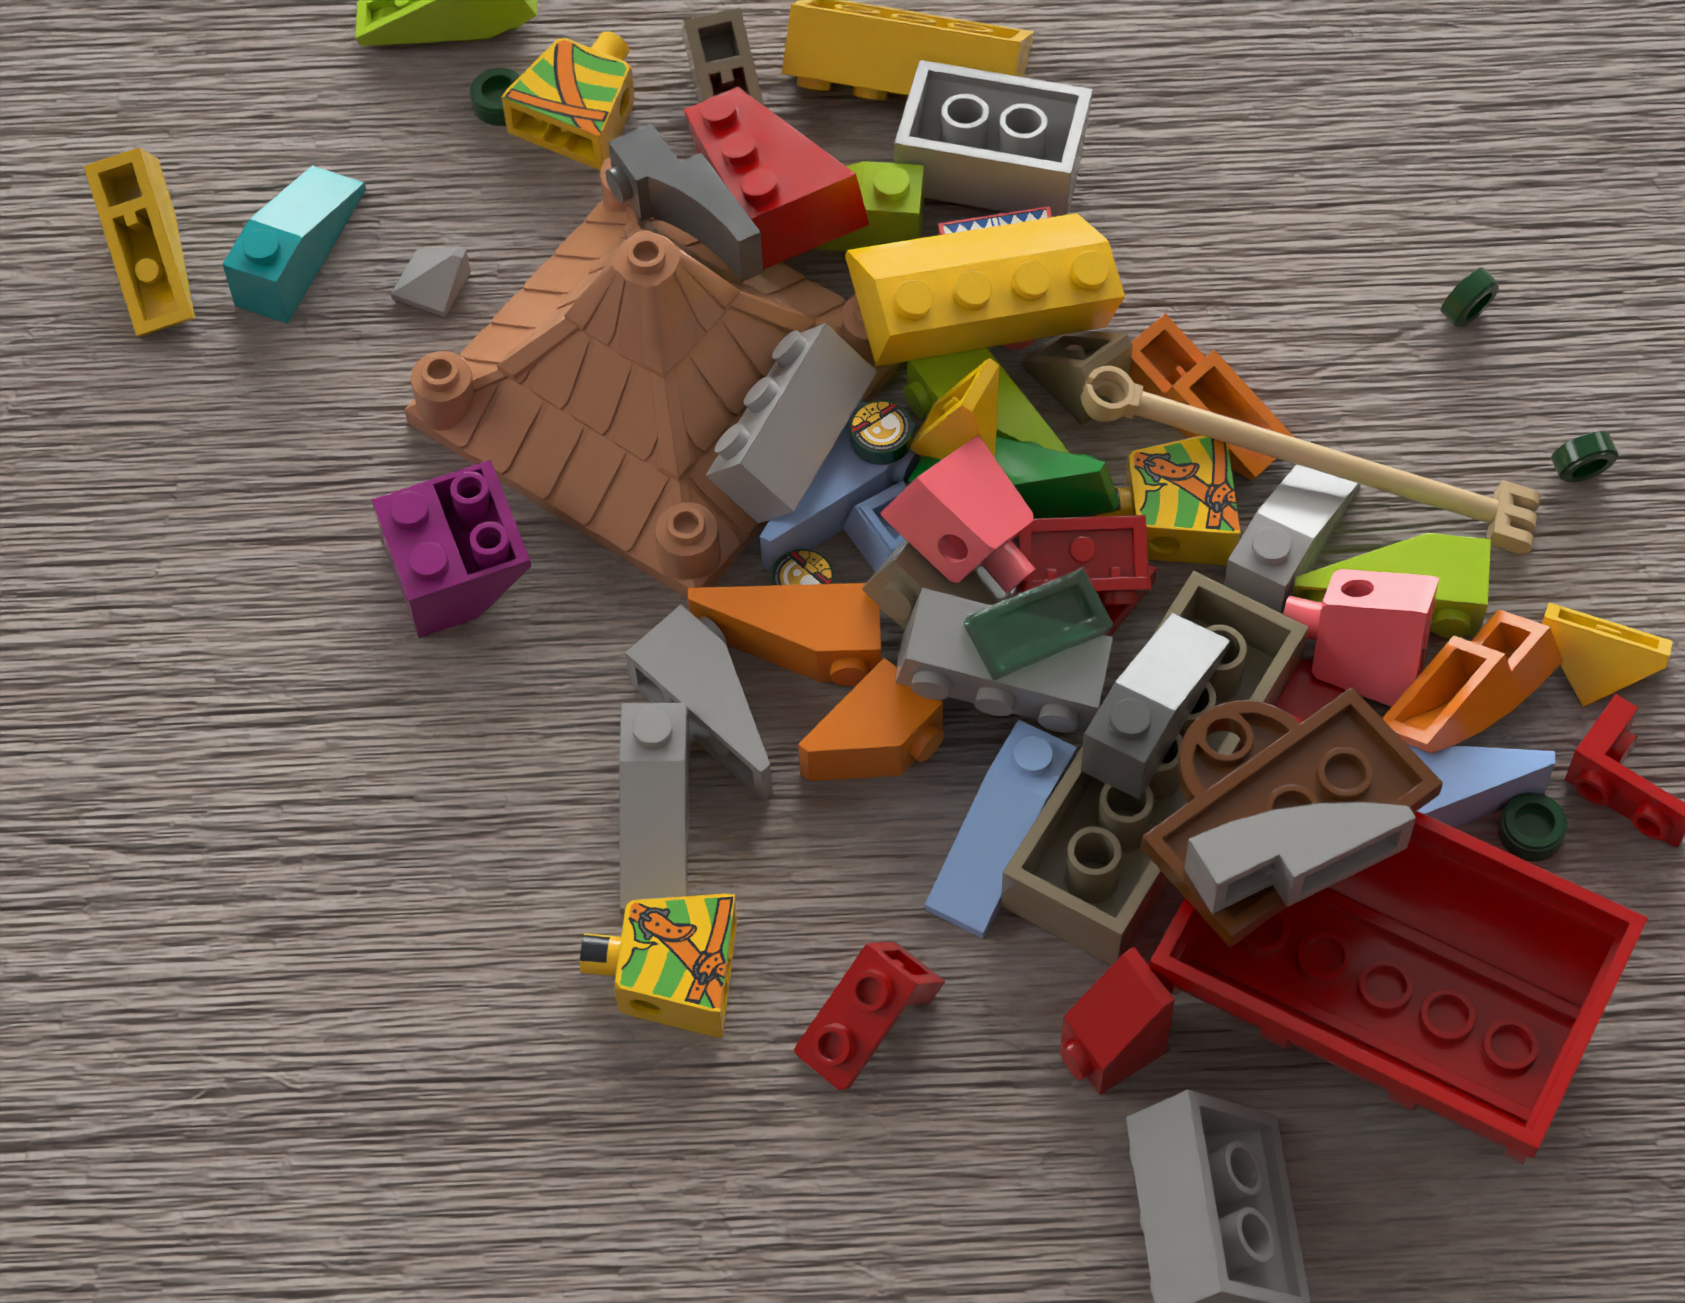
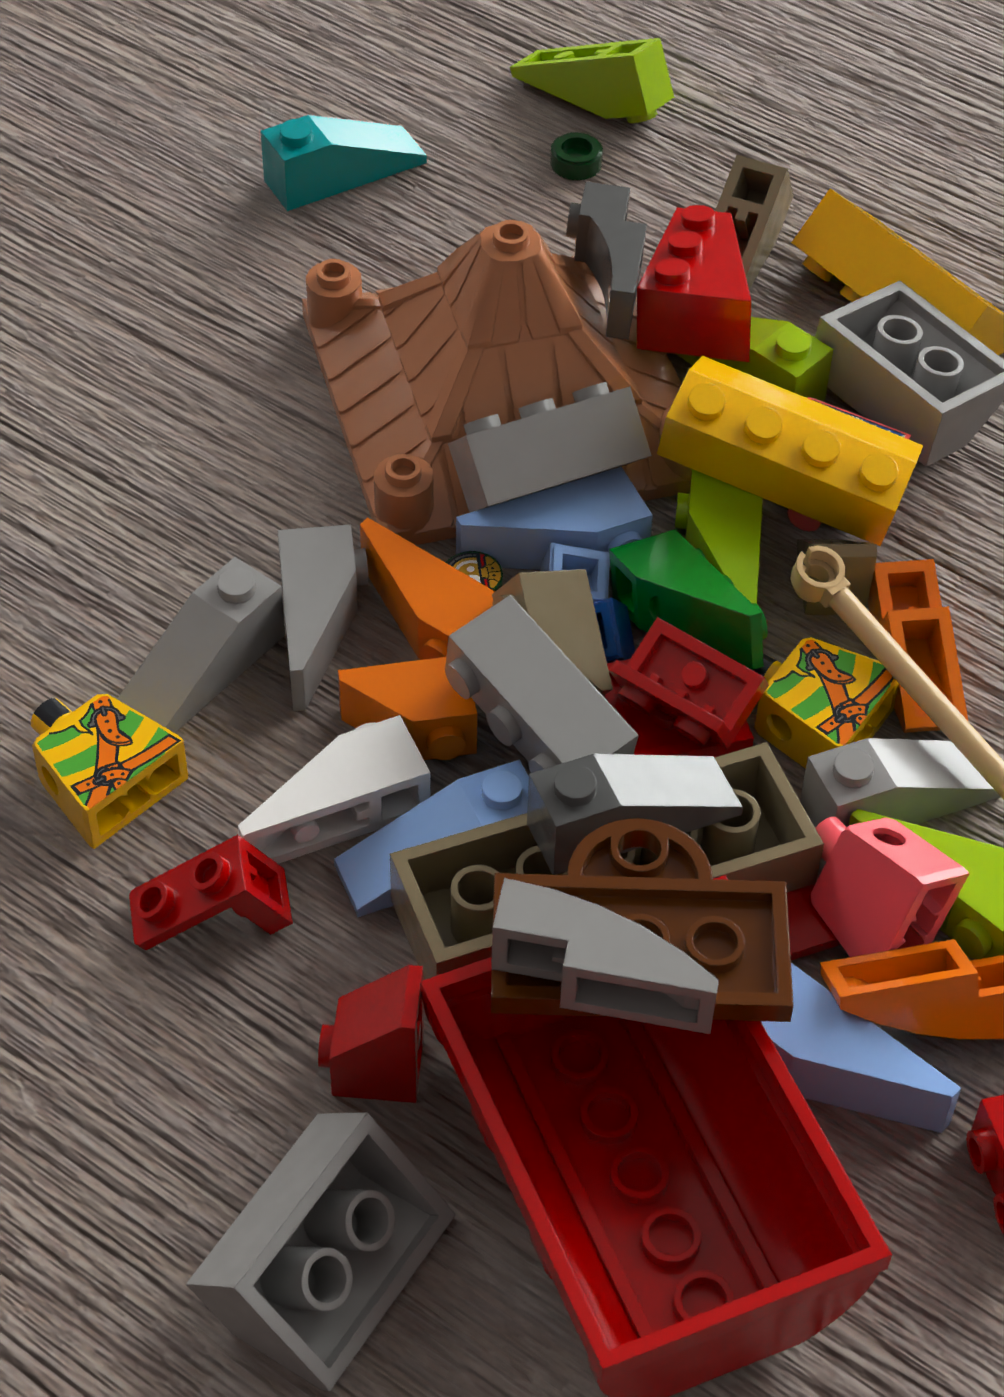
camera: 35 degrees right, 10 degrees down
(142, 239) = (239, 95): yellow slope -> none
(433, 279) = (411, 238): light grey slope -> none
(451, 546) = (229, 392): magenta slope -> none
(573, 98) = (629, 161): torso -> none
(881, 432) = (616, 500): tile -> none
(896, 824) = (342, 792): none -> white slope
(962, 414) = (677, 516): yellow slope -> none
(965, 517) = (606, 577): coral torso -> none
(1038, 624) = (579, 679): clear green tile -> none
(1532, 827) = (900, 1149): dark green tile -> none

